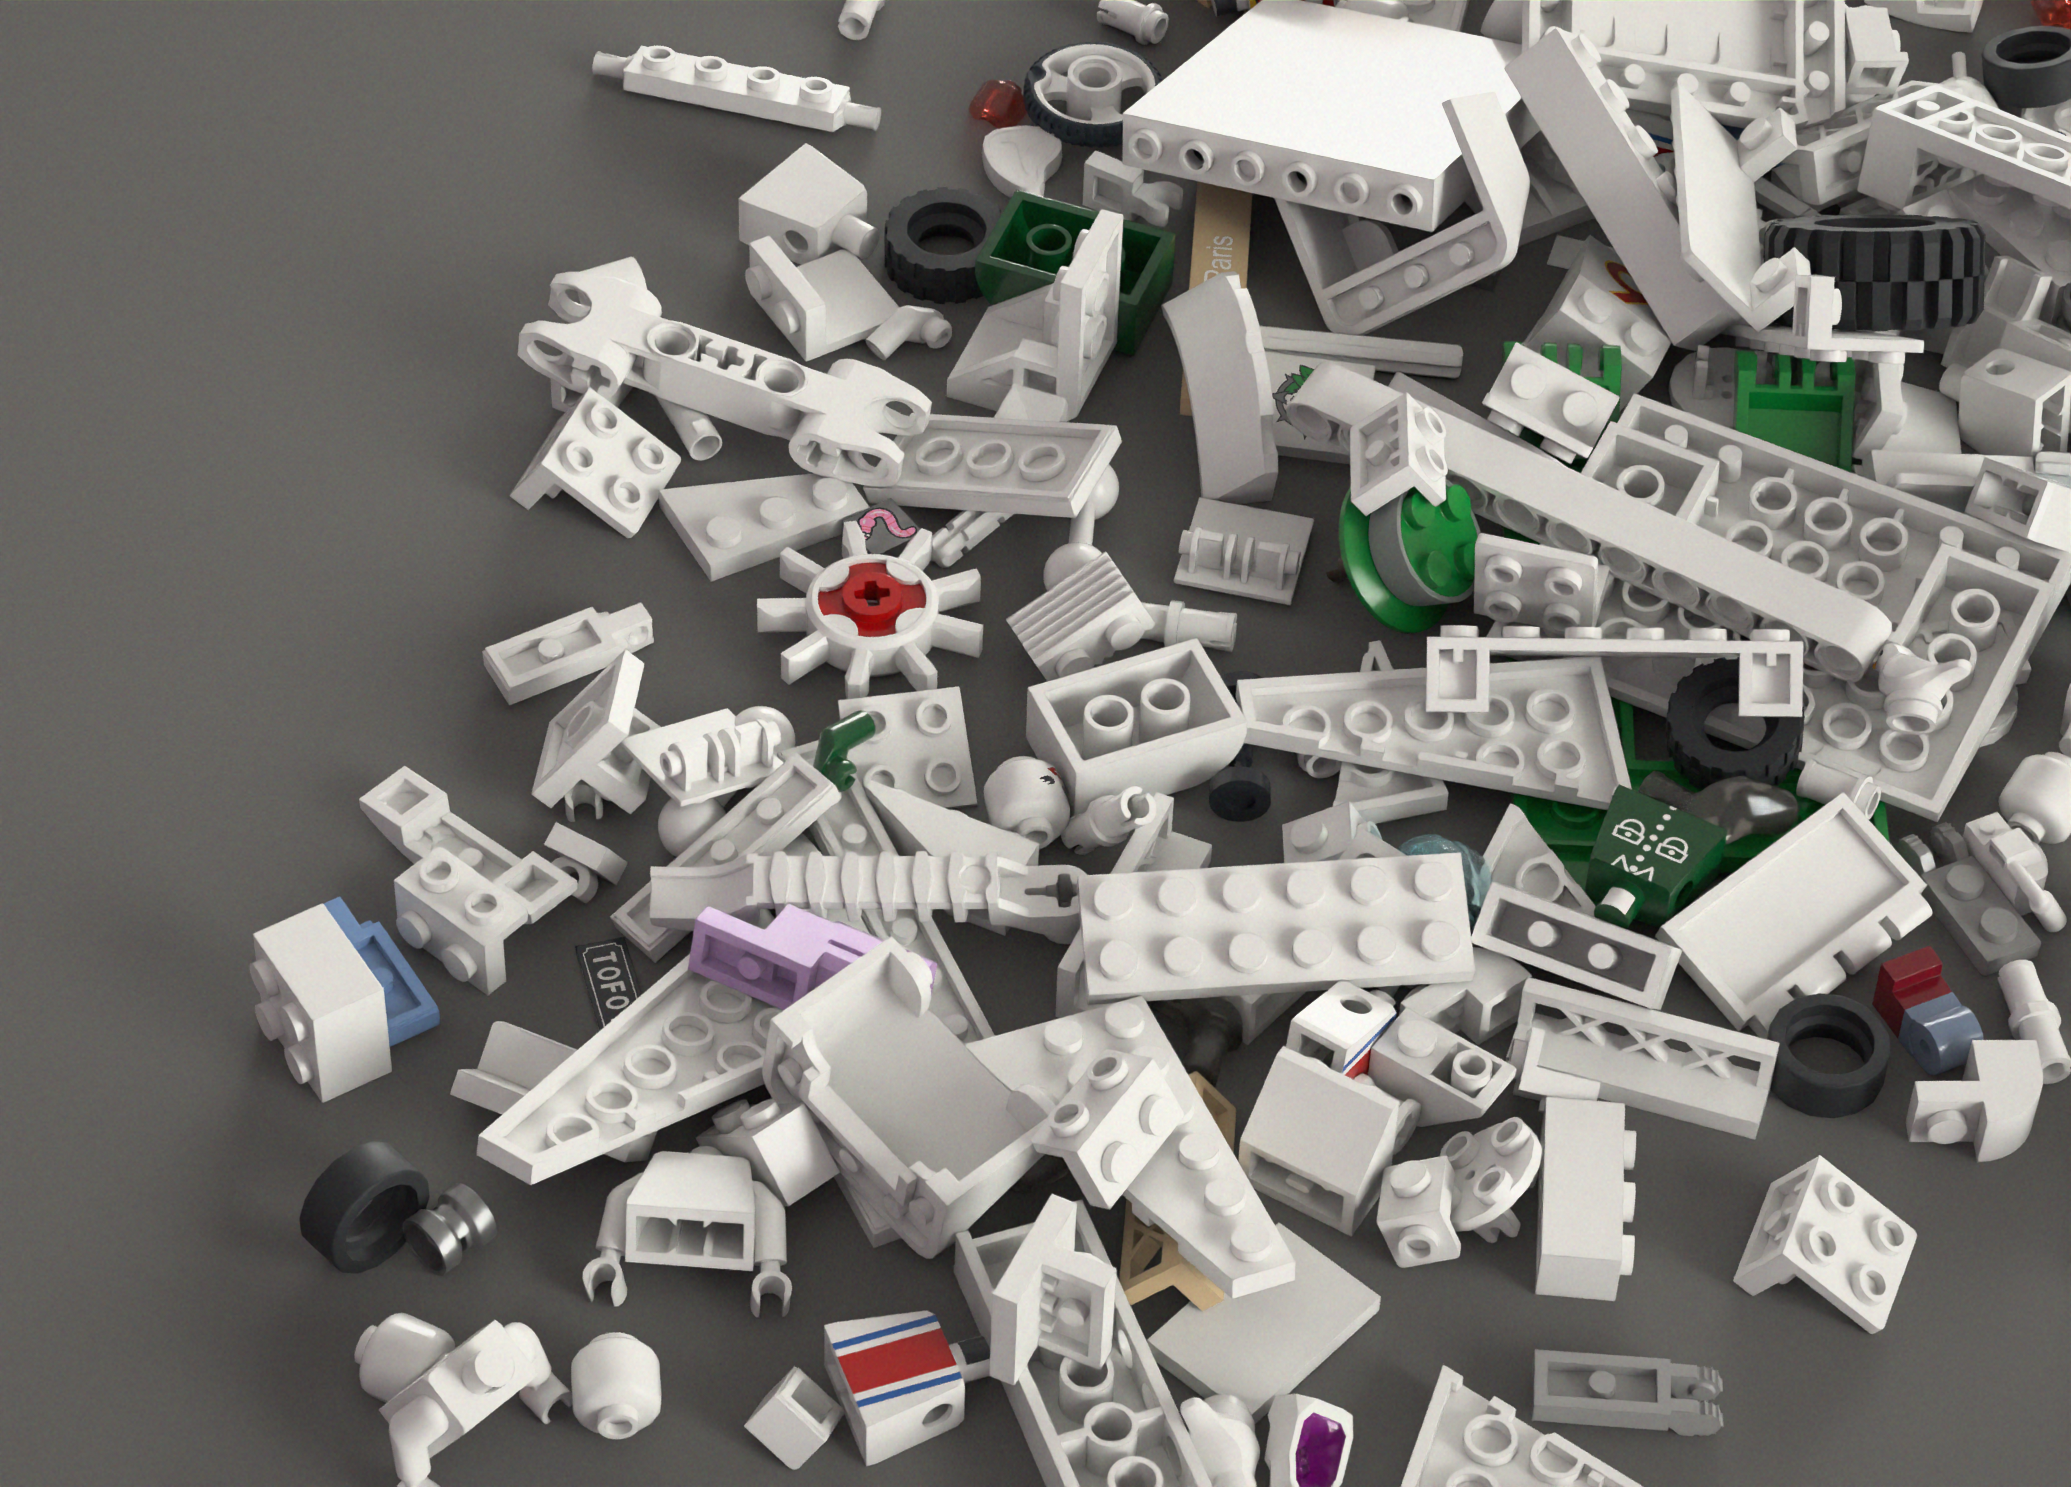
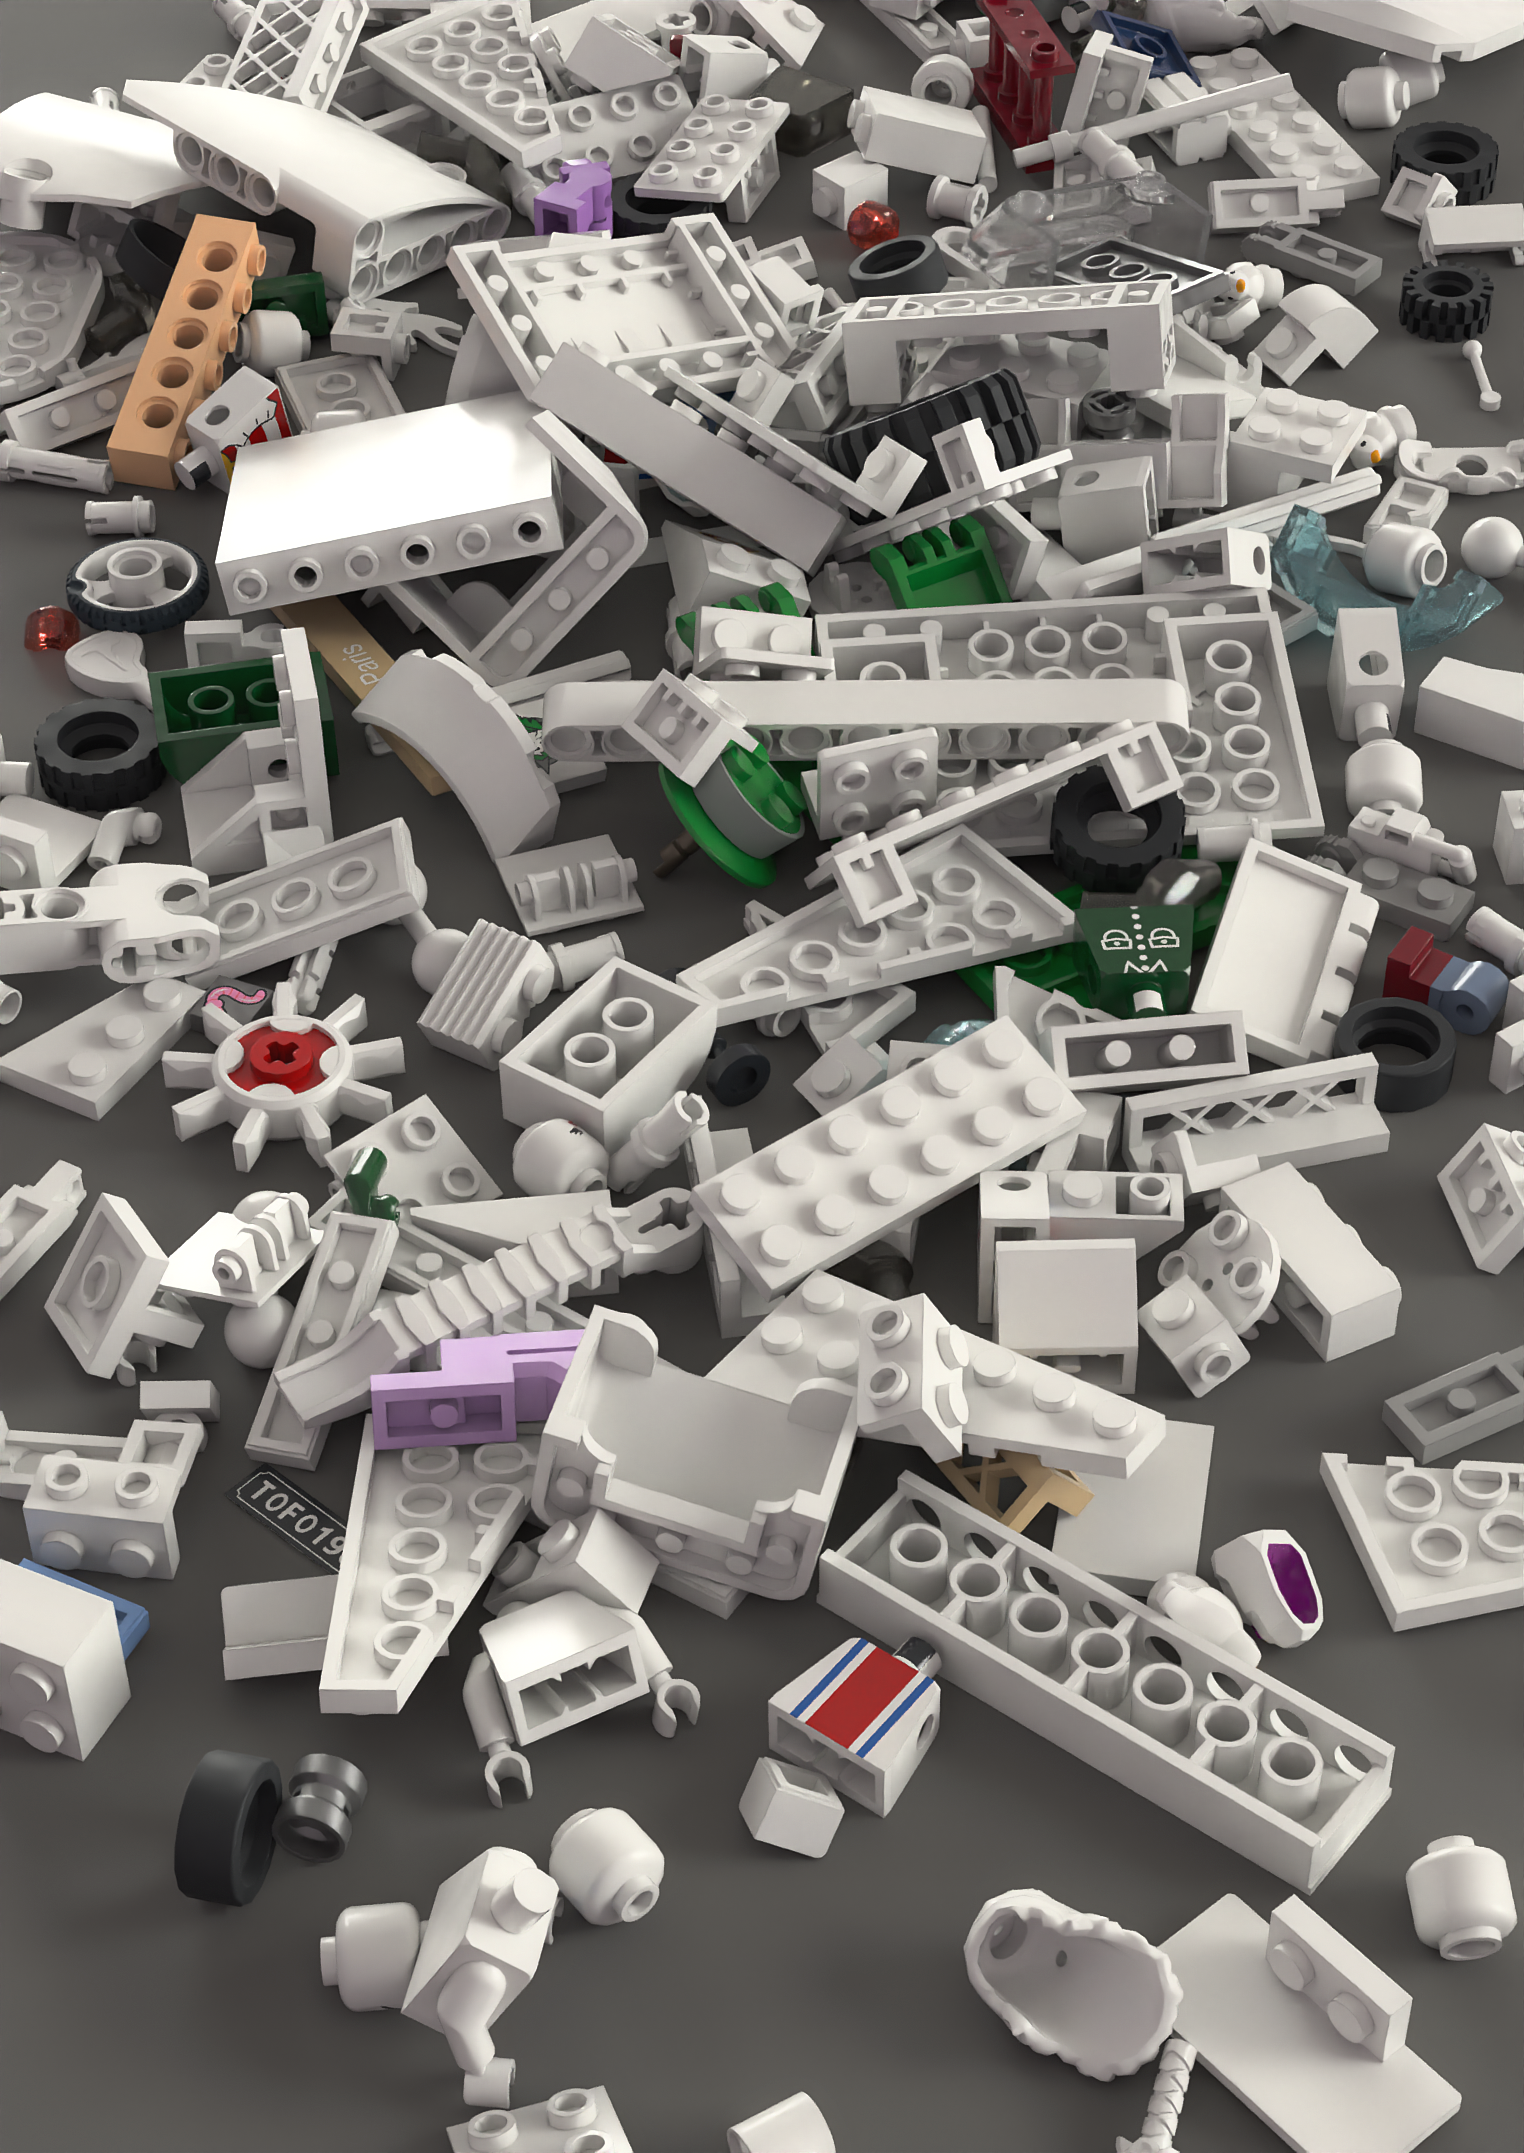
camera: 30 degrees left, 5 degrees down
(1052, 1298) = (989, 1553): white bracket -> none
(1915, 687) = (1240, 730): white animal -> none

